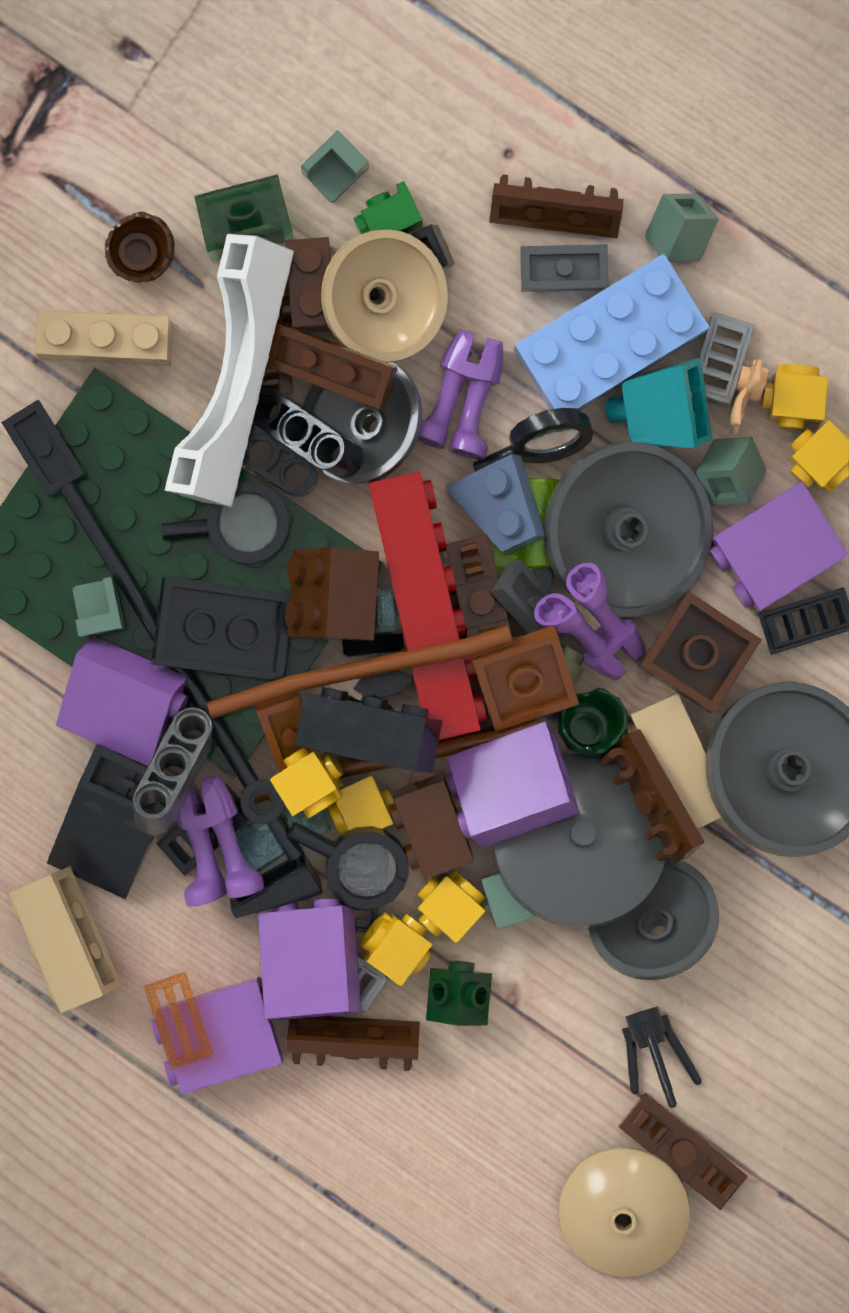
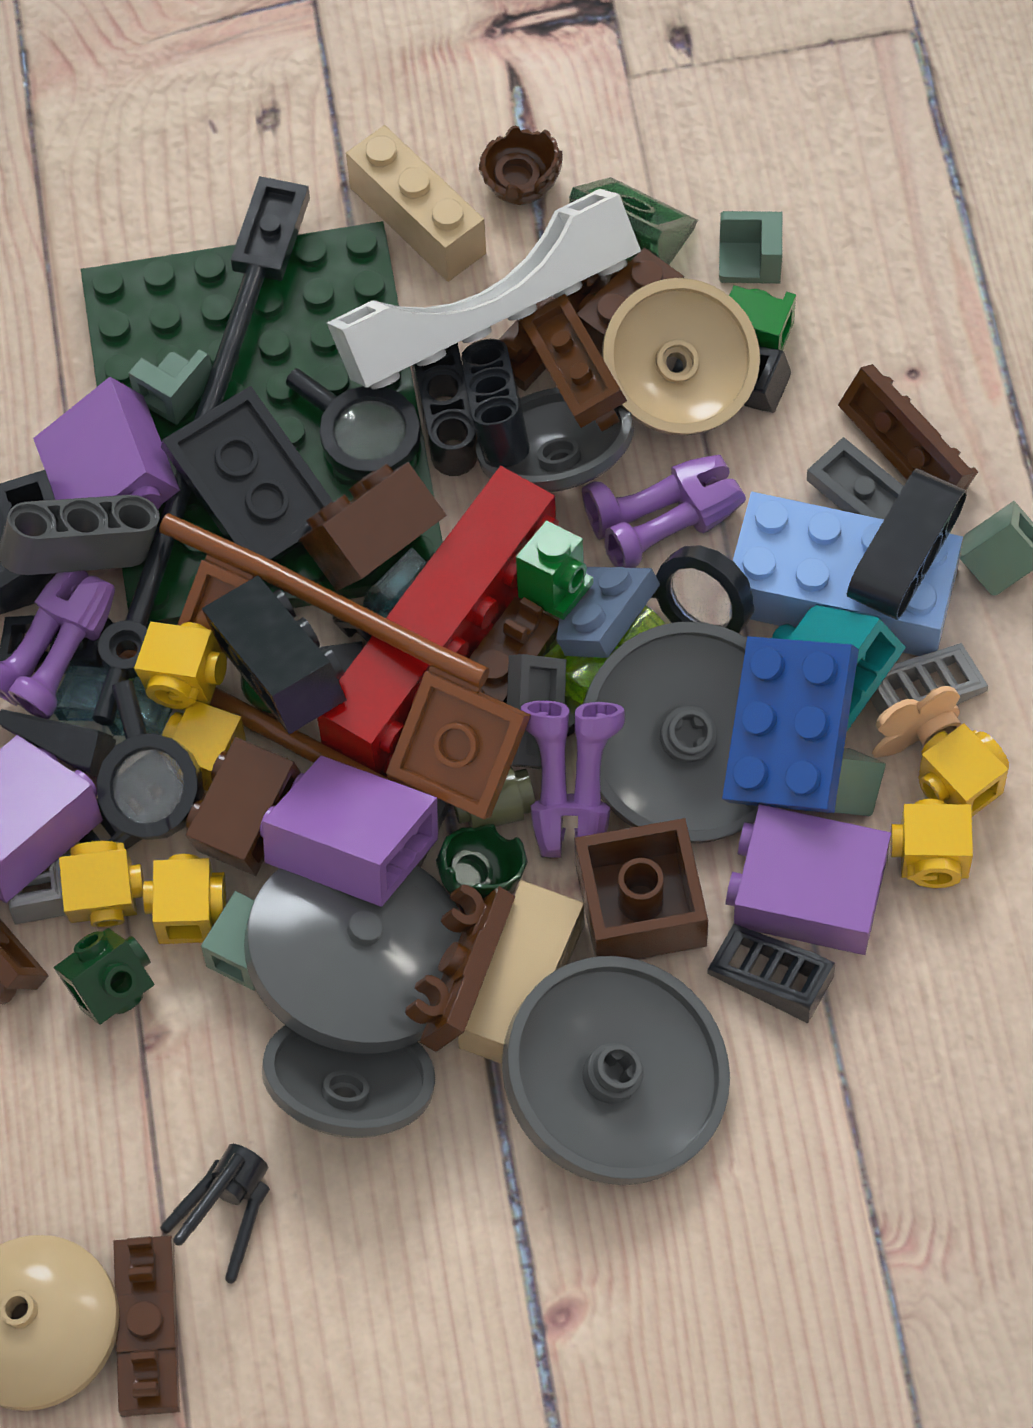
camera: 50 degrees right, 25 degrees down
(462, 514) = (553, 570): none -> green brick
(648, 298) = (906, 543): none -> black beam
(690, 475) = (790, 724): none -> blue plate

